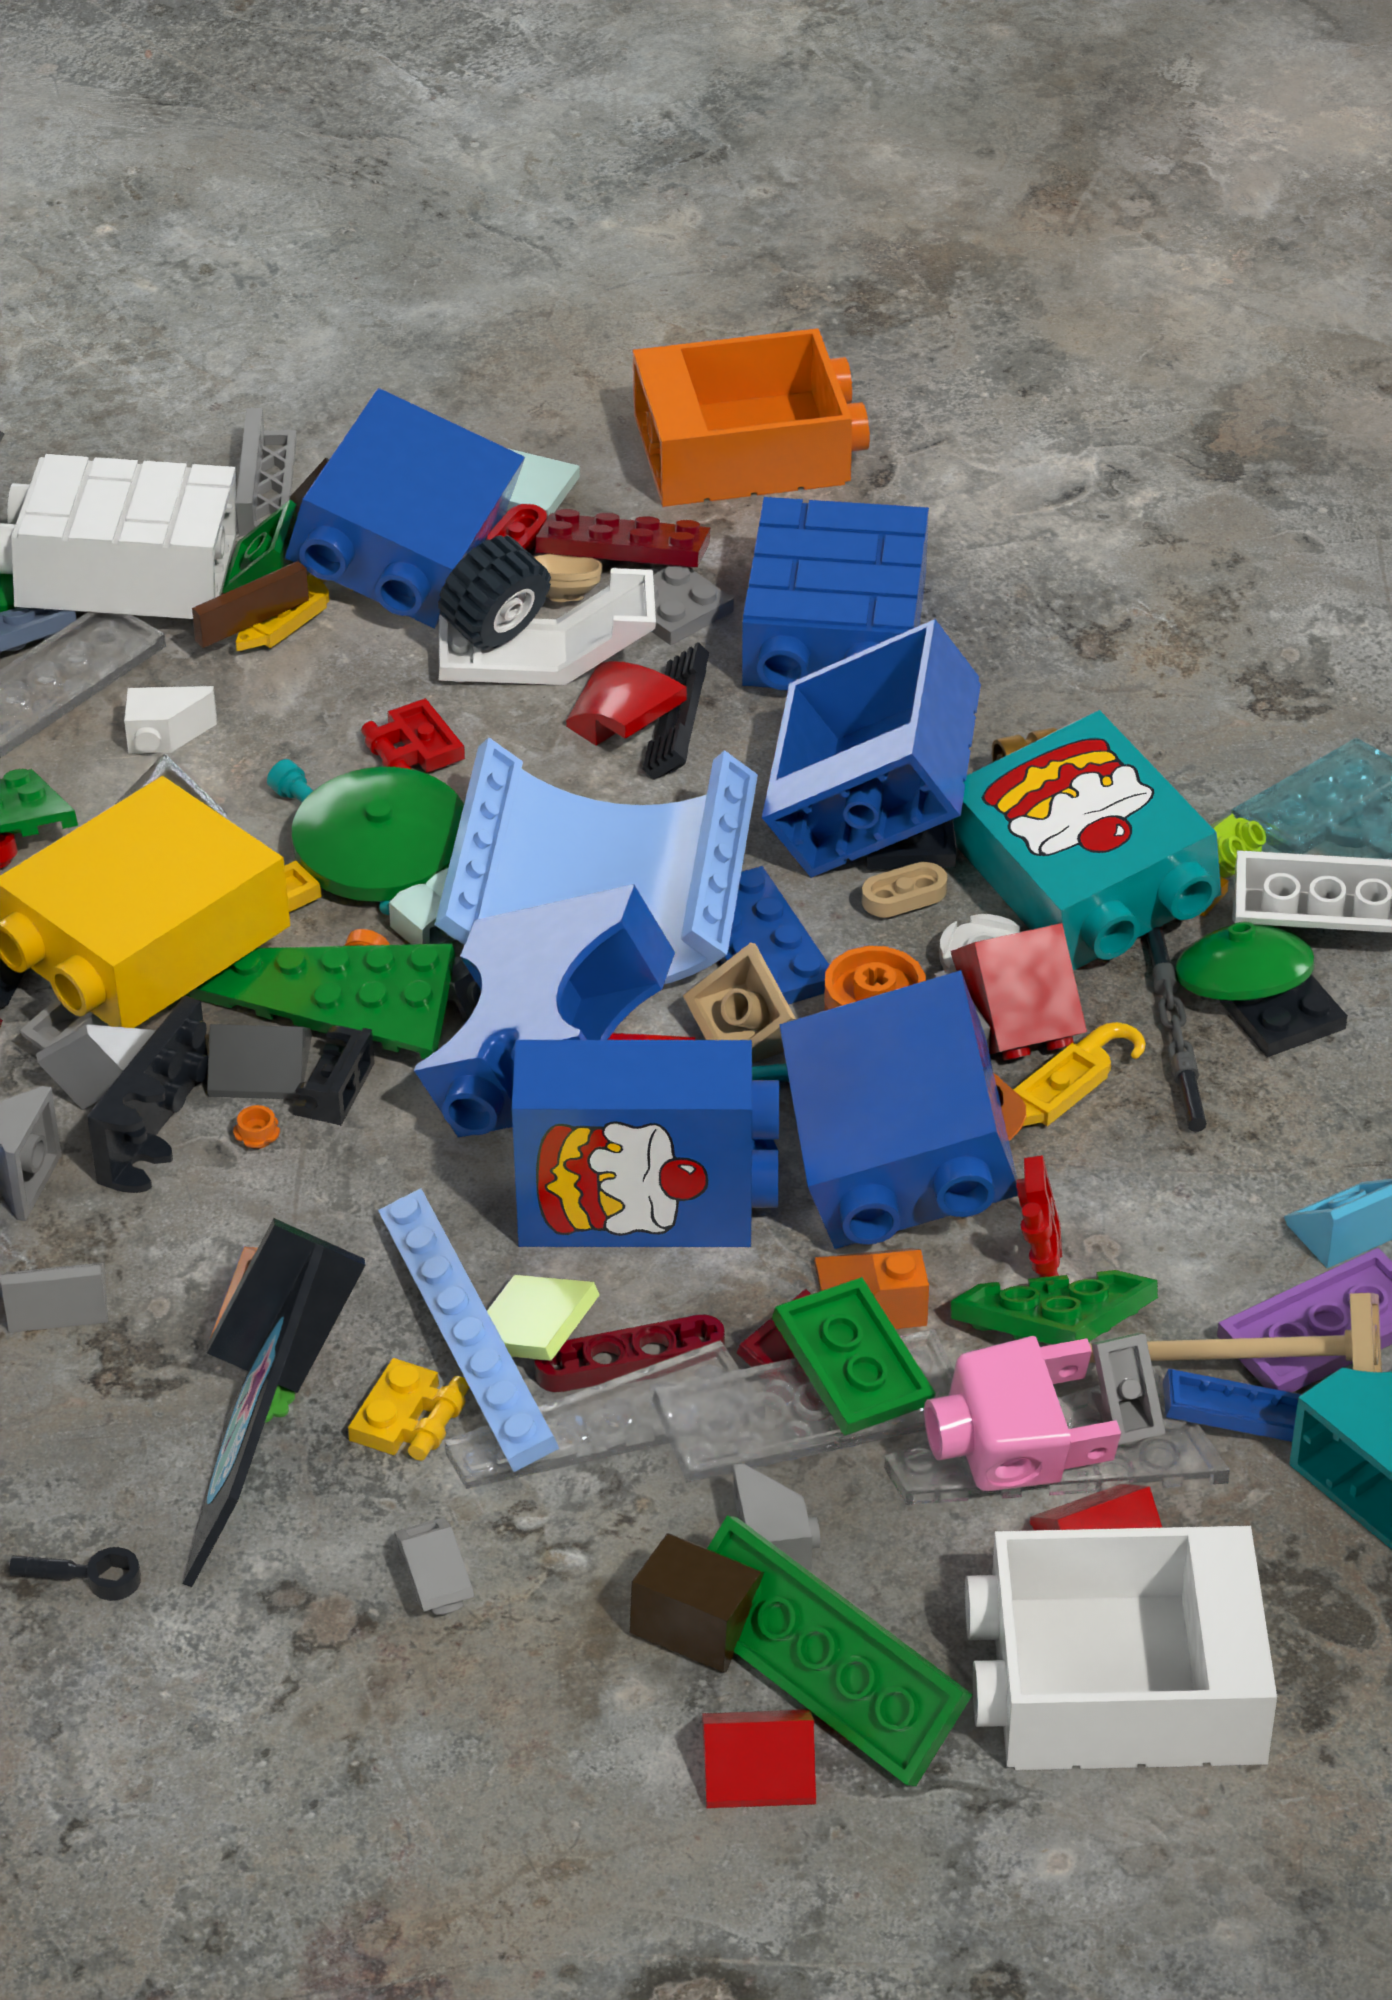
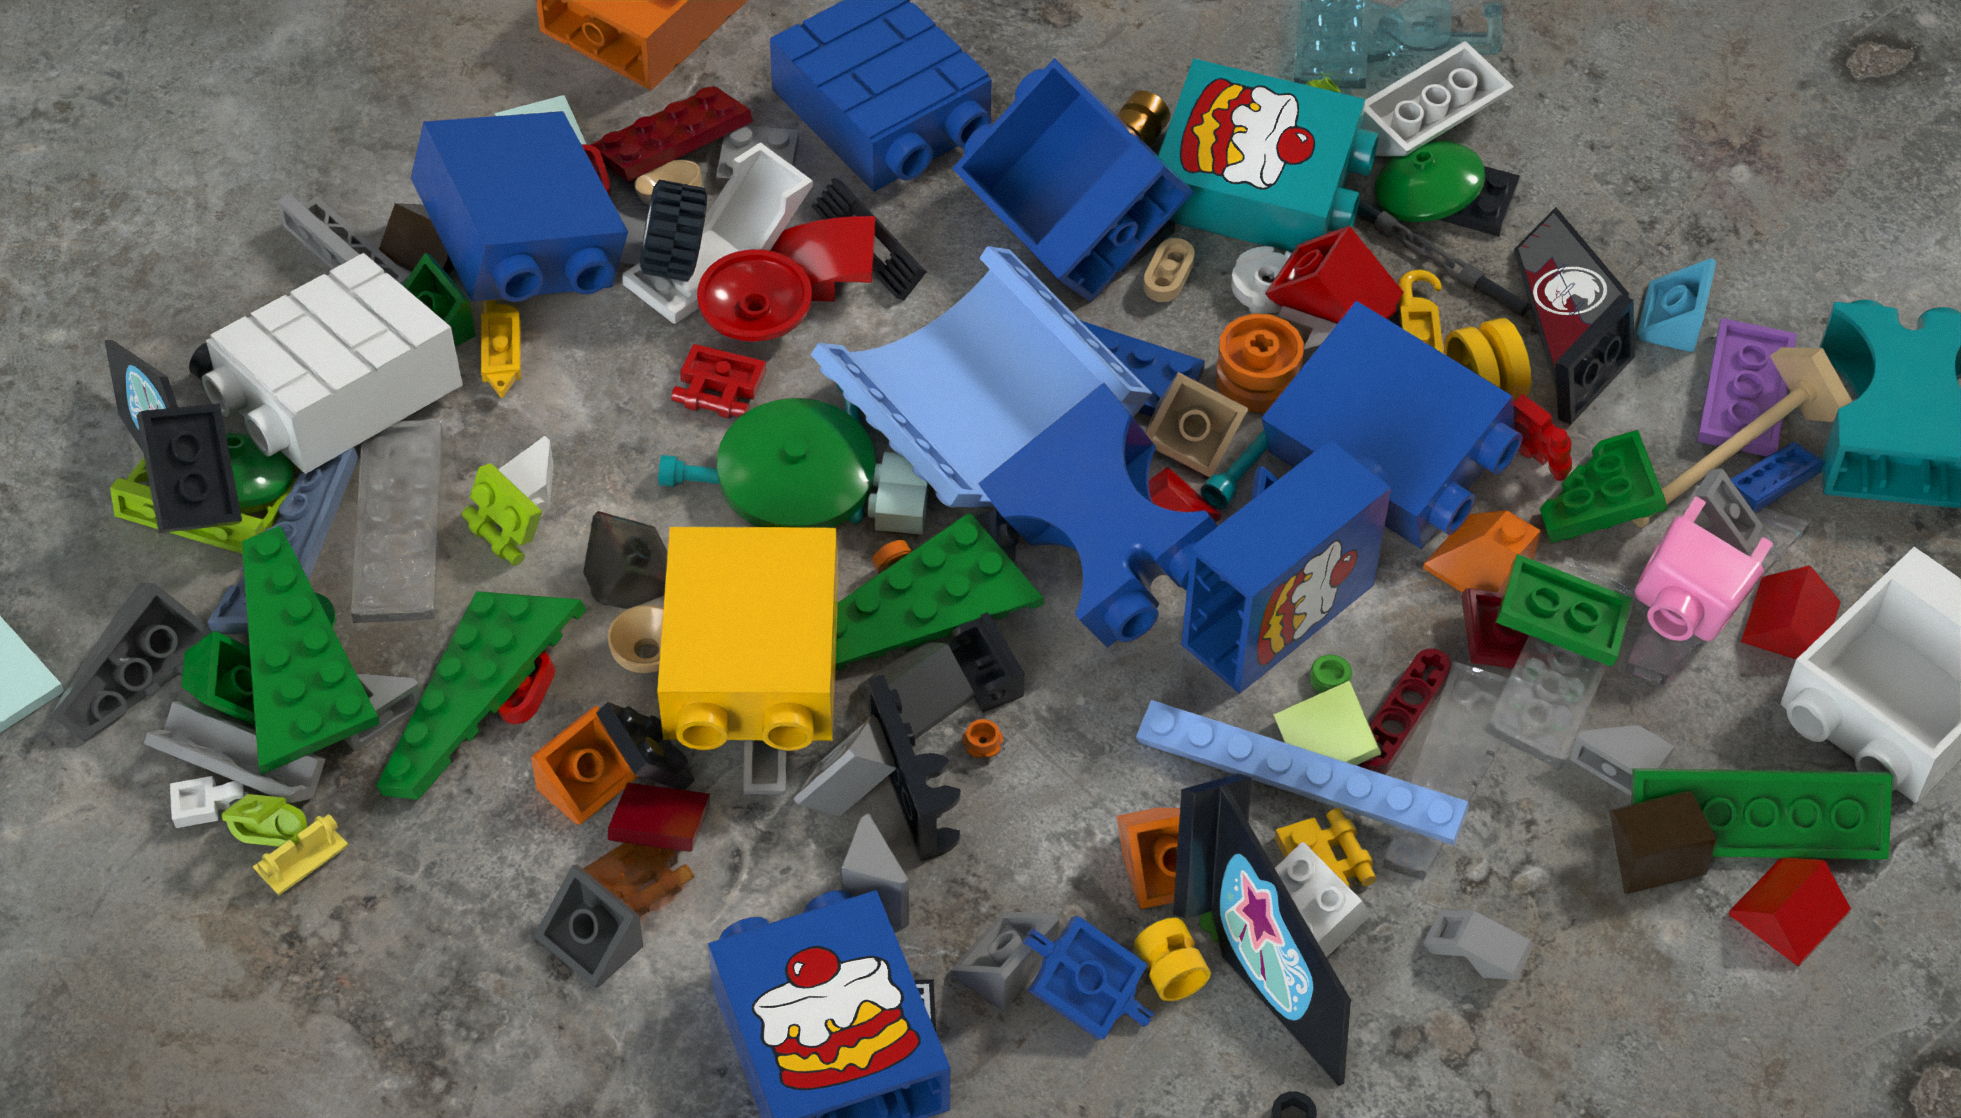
camera: 45 degrees left, 10 degrees up
(77, 1339) = (1088, 977): none -> blue plate
(110, 721) = (508, 507): none -> lime plate
(168, 1382) = (1172, 960): none -> yellow wheel
(250, 604) = (490, 354): reddish brown tile -> none
(320, 1422) = (1322, 898): none -> white brick
(515, 689) = (754, 295): none -> red dish
(614, 1283) = (1329, 672): none -> bright green tile
(1073, 1128) = (1493, 353): none -> yellow wheel
(1216, 1169) = (1578, 312): none -> piece

